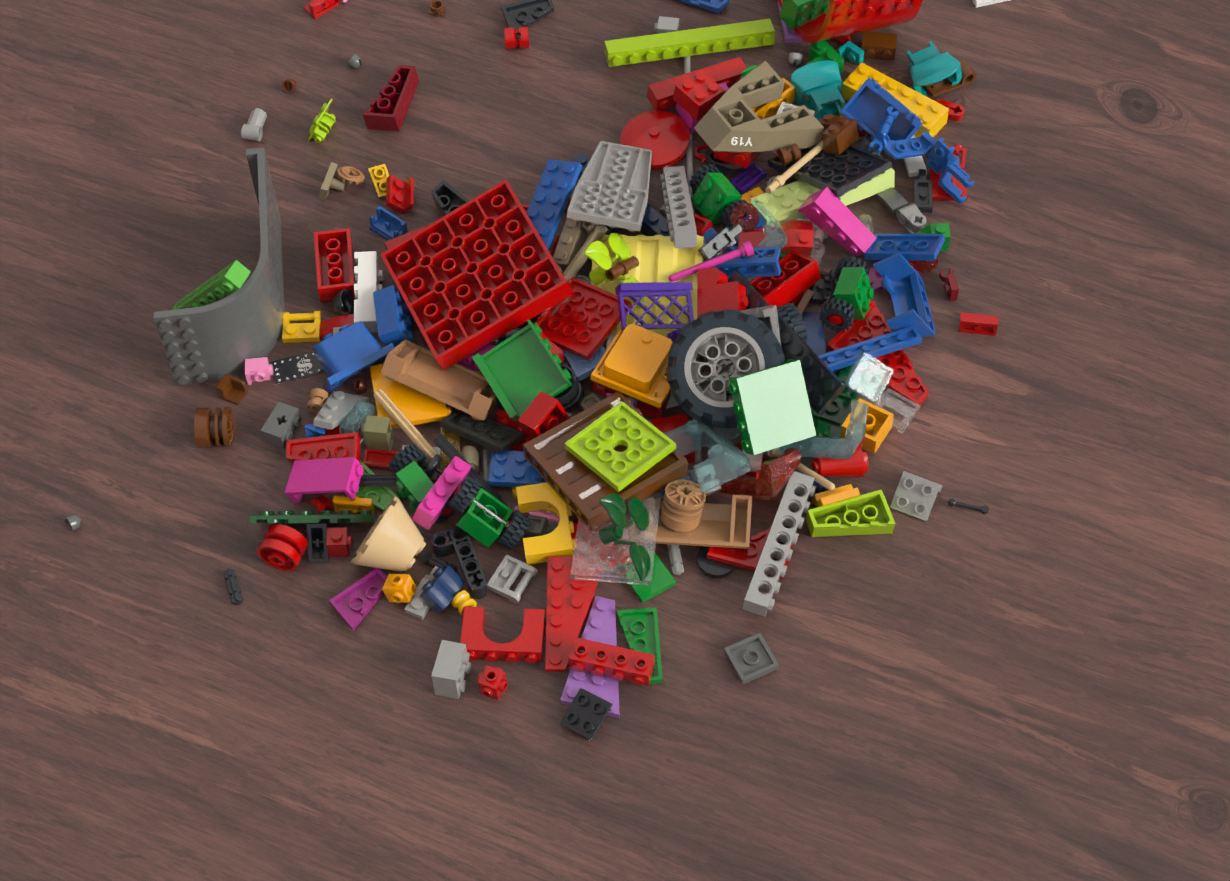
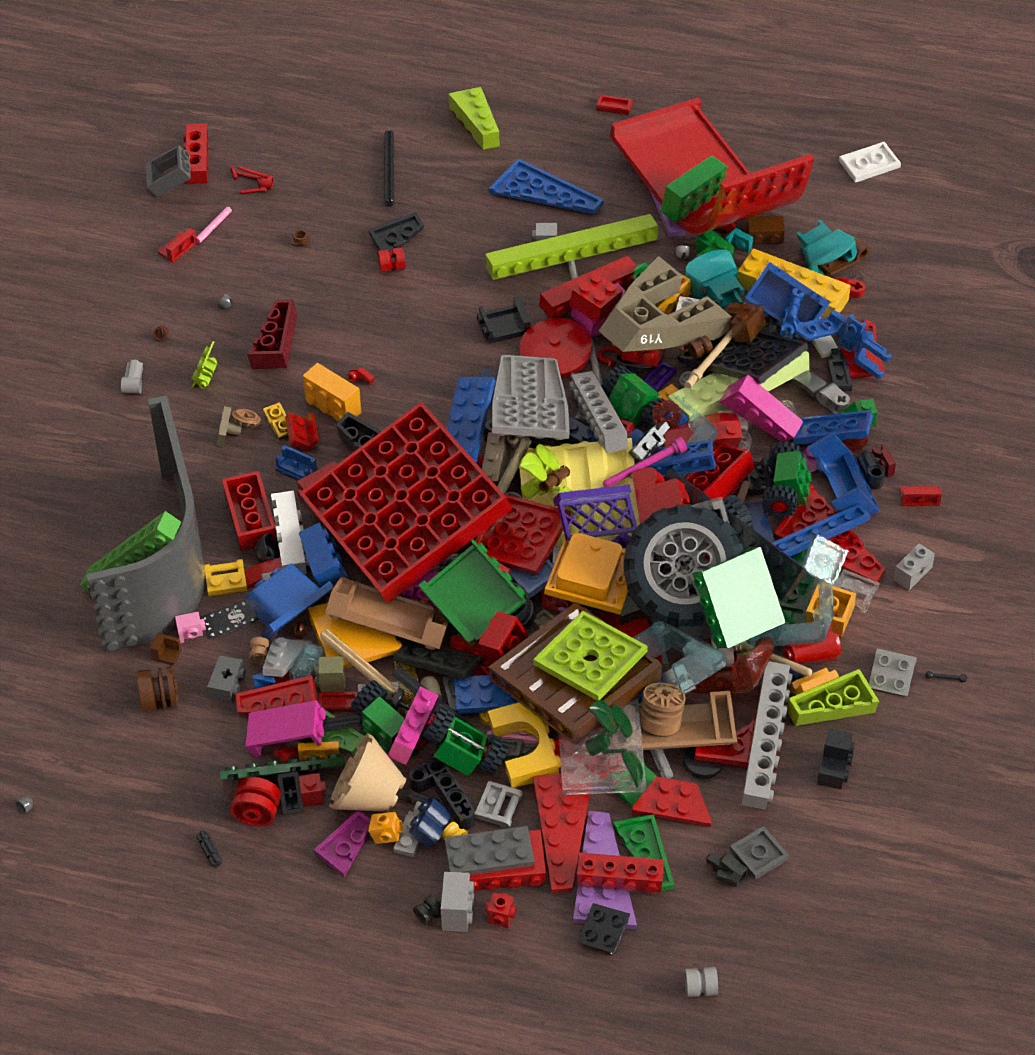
camera: 10 degrees left, 5 degrees down
(422, 673) = (427, 909): none -> pearl dark grey wheel
(433, 160) = (331, 392): none -> light orange brick
(466, 144) = (360, 373): none -> red arm
(491, 624) = (490, 851): none -> dark grey plate
(612, 109) = (504, 322): none -> black panel
(669, 779) = (701, 981): none -> light grey wheel
(678, 597) = (673, 801): none -> red wing
(718, 671) = (728, 869): none -> pearl dark grey rock
(842, 576) = (836, 757): none -> black brick
(935, 293) = (871, 469): none -> black piece
(957, 393) = (914, 566): none -> light grey brick

